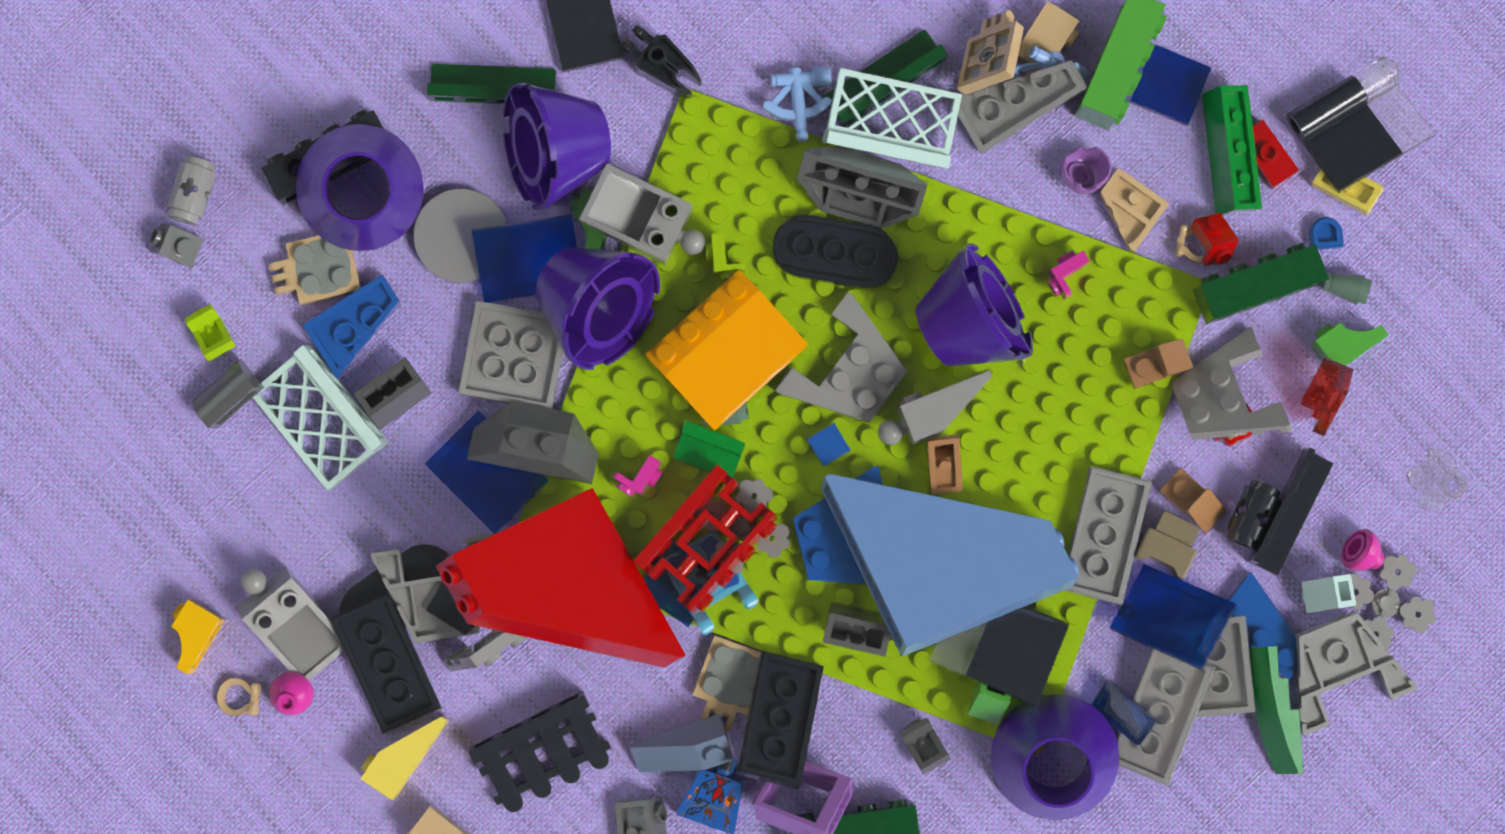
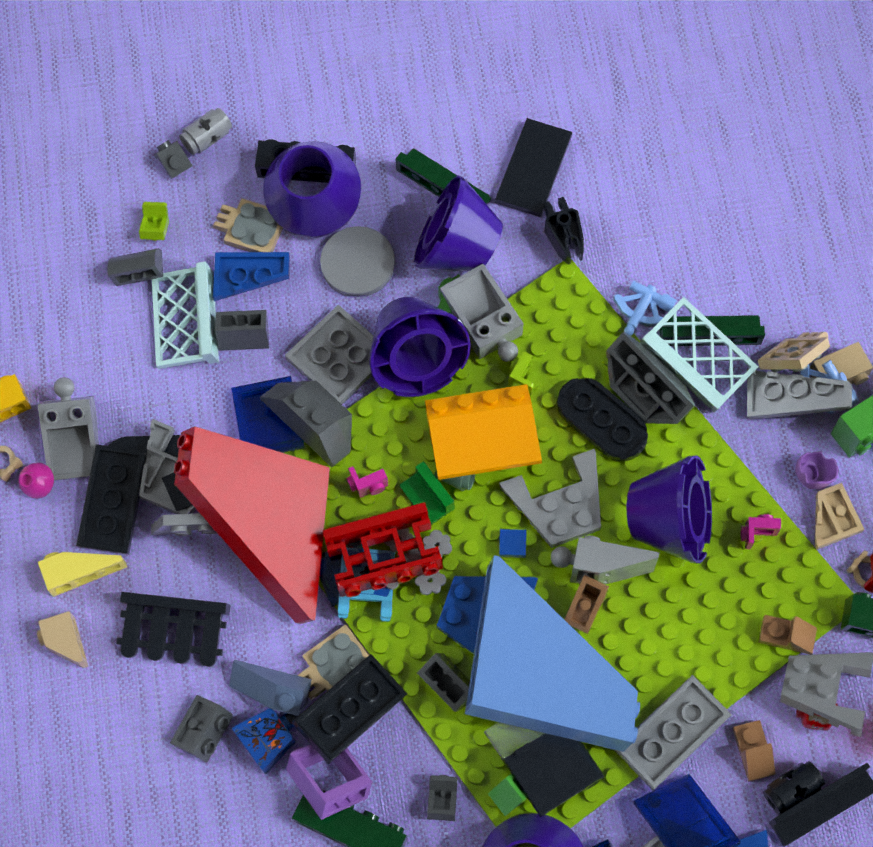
camera: 40 degrees right, 15 degrees down
(516, 253) = (379, 285): clear blue piece -> none
(1169, 544) = (716, 769): dark tan piece -> none

